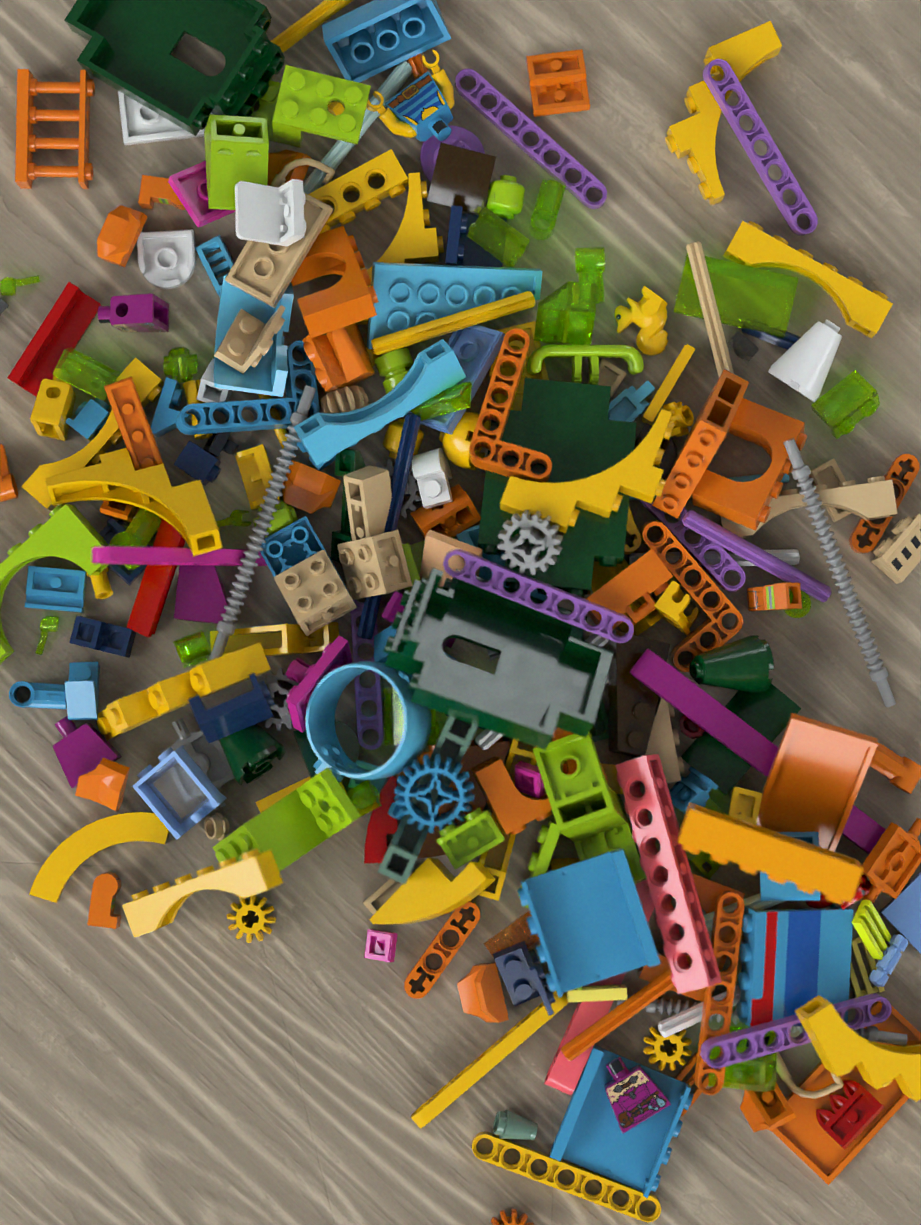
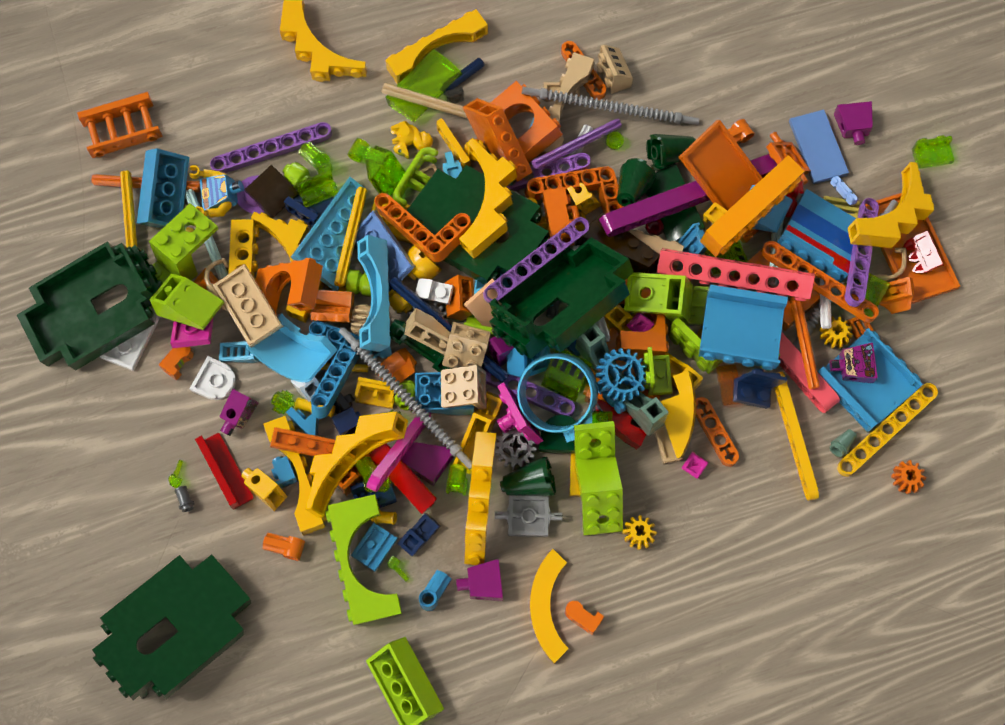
camera: 60 degrees left, 15 degrees down
(28, 115) = (97, 423): orange fence -> none
(83, 691) = (446, 561): slope -> none
(85, 373) = (255, 458): clear neon green bracket -> none
(104, 784) = (511, 575): orange slope -> none
(120, 235) = (186, 397): orange slope -> none
(178, 791) = (539, 533): window -> none
(216, 826) = (572, 525): tan plate -> none
(235, 713) = (512, 468): dark blue panel -> none
(244, 878) = (616, 505): yellow arch -> none
(248, 340) = (293, 354): tan bracket -> none
(270, 212) = (229, 294): white bracket -> none
(445, 402) = (395, 257): clear neon green slope -> none
(482, 993) = (754, 420): orange slope -> none
(522, 552) = (499, 253): light grey gear -> none
(558, 83) = (249, 119): orange slope -> none
(598, 993) = (787, 349): light yellow tile -> none
(748, 138) = (358, 28): medium lavender beam -> none
(774, 597) = (605, 147): orange leg -> none
(809, 360) = (483, 64): white cone -> none
(820, 690) = (666, 149): none -> dark green cone
(847, 404) = (517, 60): clear neon green bracket -> none
(871, 929) = (822, 188): neon yellow tile -> none

